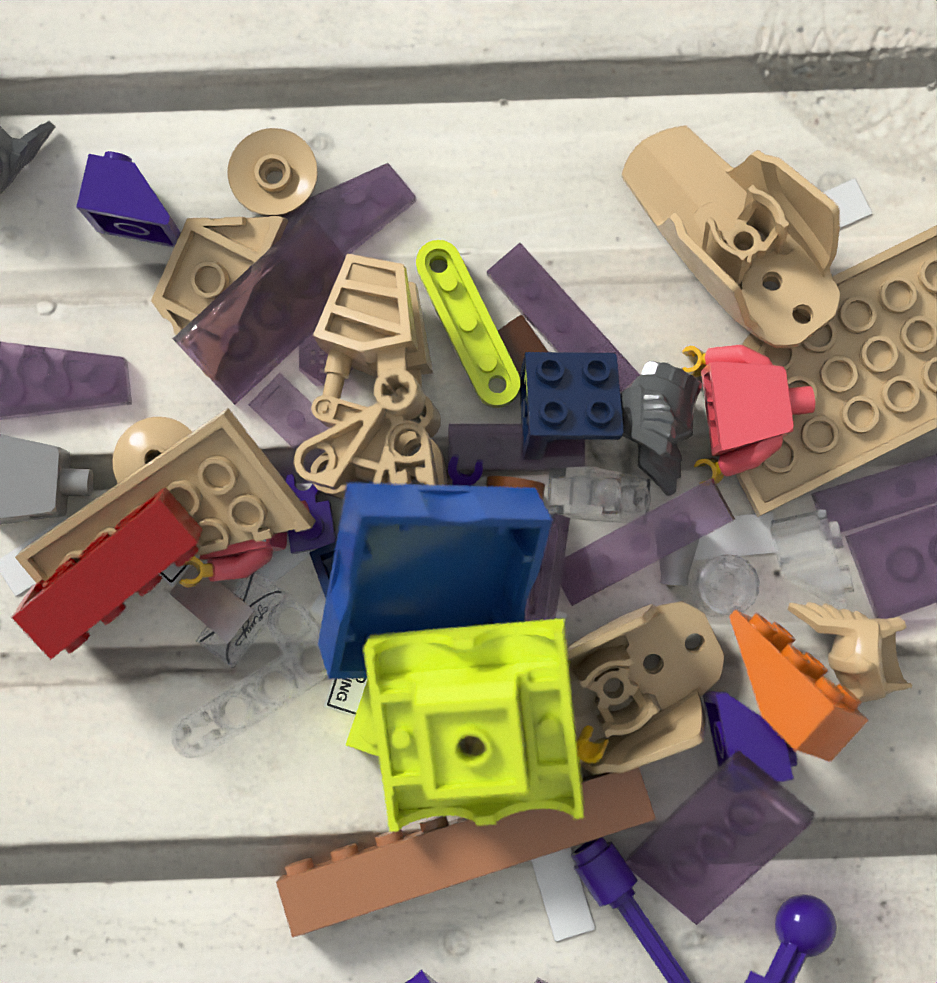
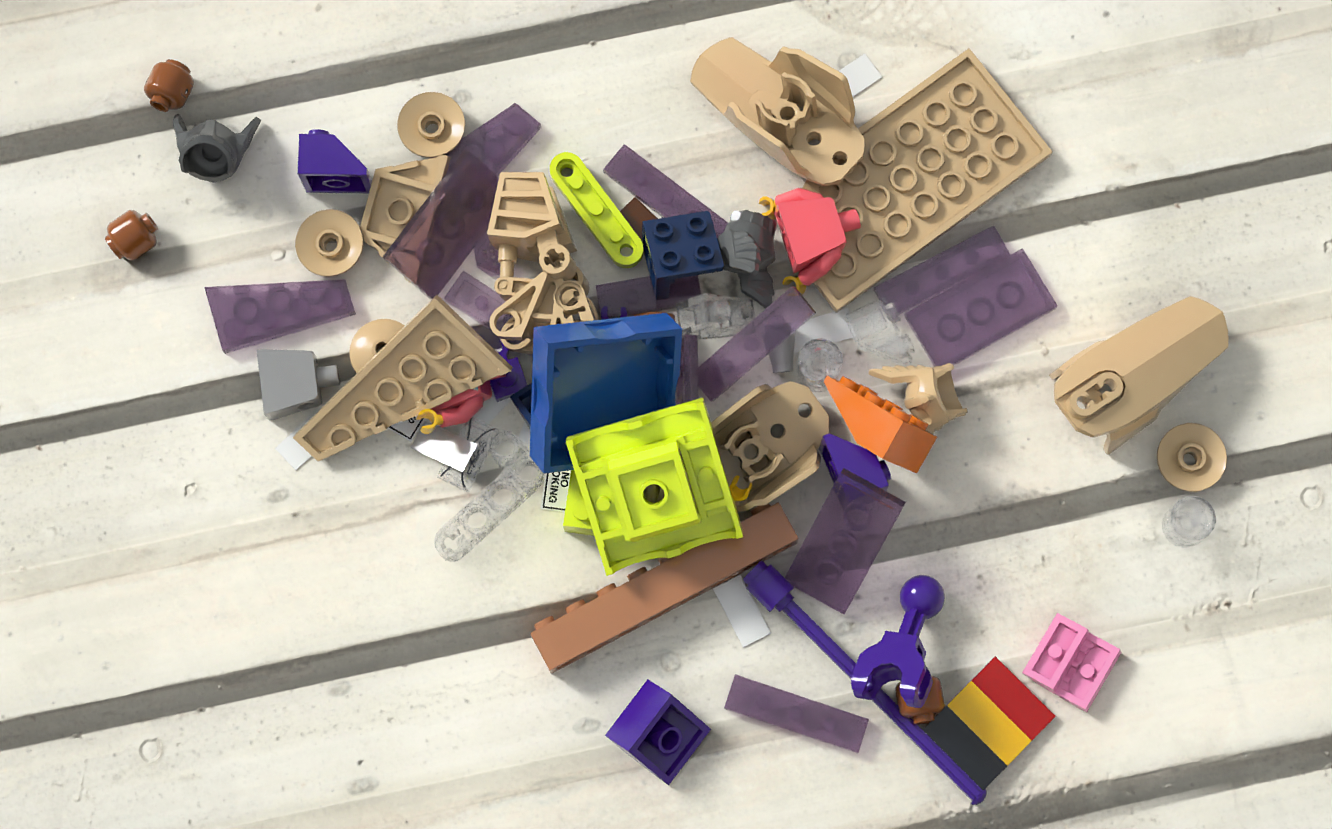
camera: 10 degrees left, 5 degrees down
(96, 291) = (318, 231): none -> tan dish
(109, 572) = (370, 430): red wedge -> none

